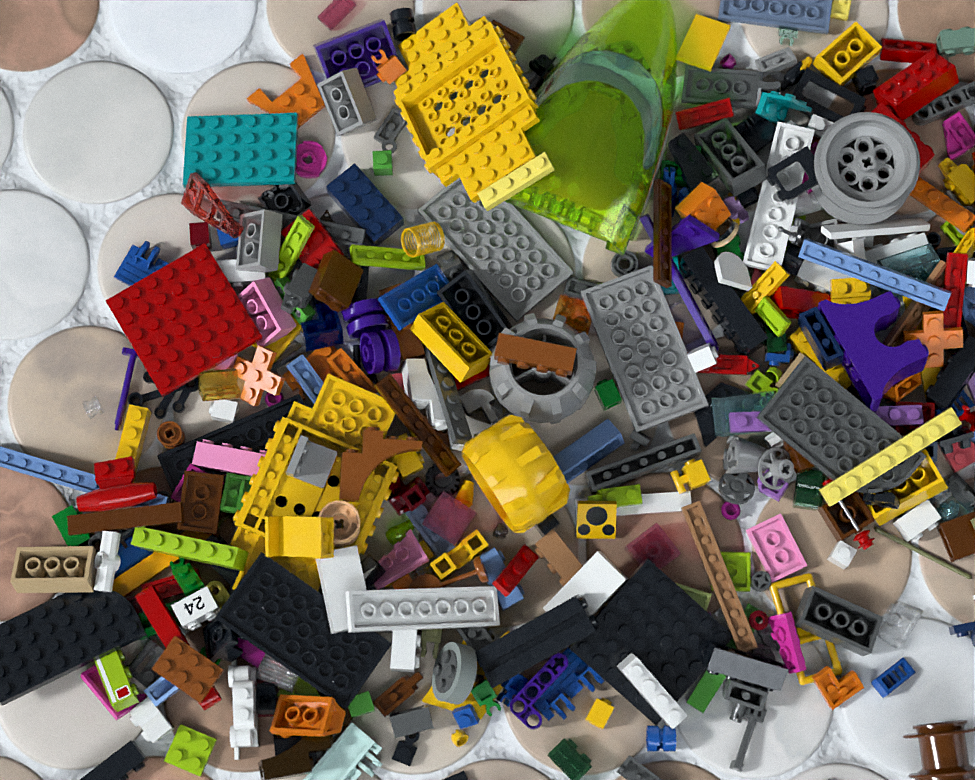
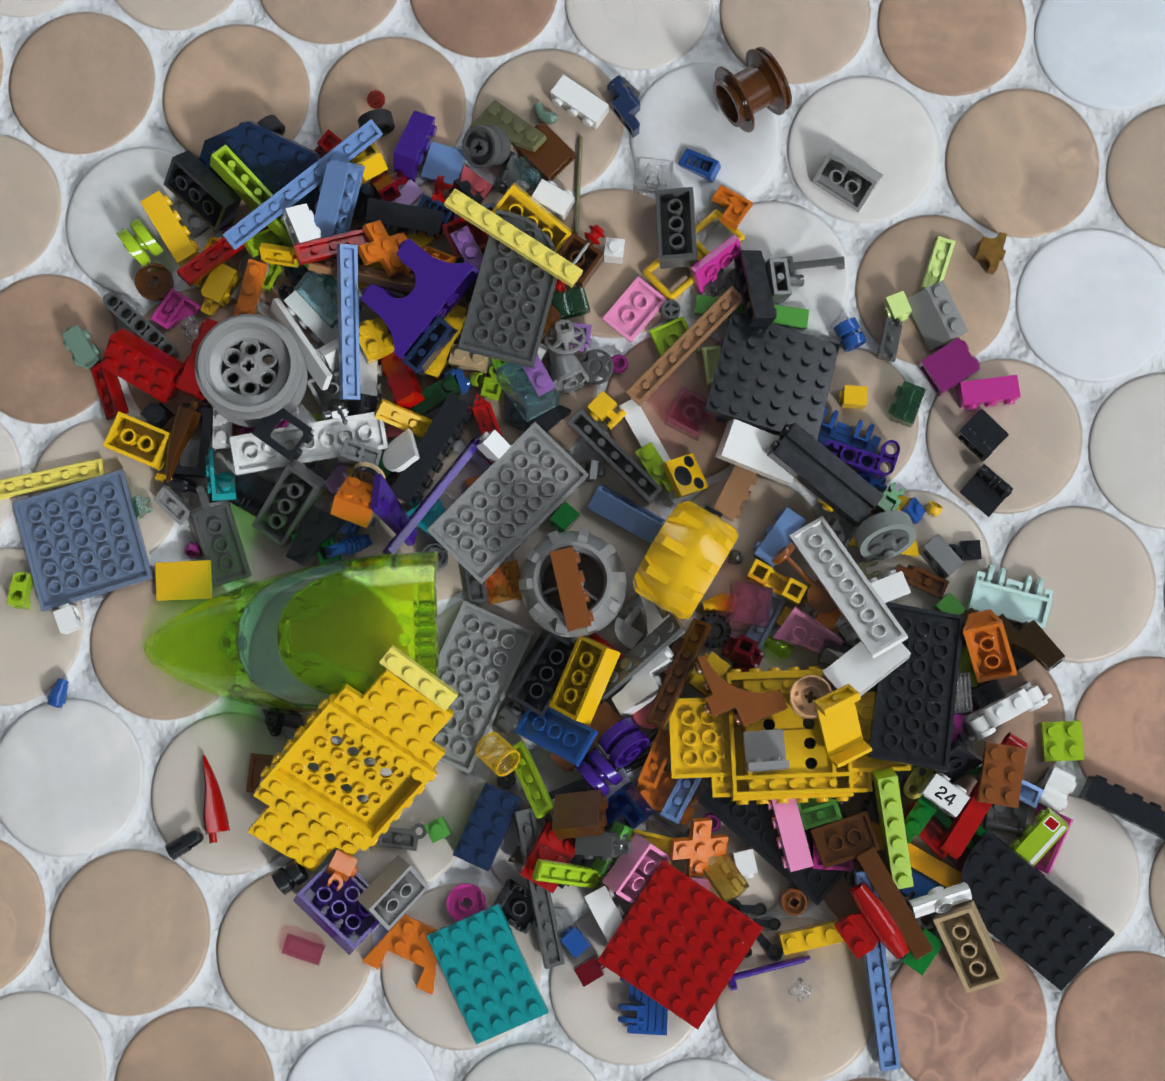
camera: 105 degrees left, 5 degrees up
(192, 200) = (557, 996): clear red plate -> none
(259, 241) = (572, 908): light grey slope -> none
(393, 239) = (506, 784): none -> black plate
(515, 570) = (766, 525): red plate -> none
(652, 690) = (817, 357): white brick -> none
(662, 233) = (397, 528): reddish brown tile -> none
(704, 114) = (255, 547): red plate -> none
(747, 233) = (355, 452): none -> dark grey hinge
(754, 624) = (707, 302): dark red plate -> none
(772, 316) = (427, 398): lime tile -> none
(839, 93) = (182, 429): none -> reddish brown piece
(884, 500) = (552, 228): black plate -> none
(937, 142) = (190, 326): none -> clear wheel

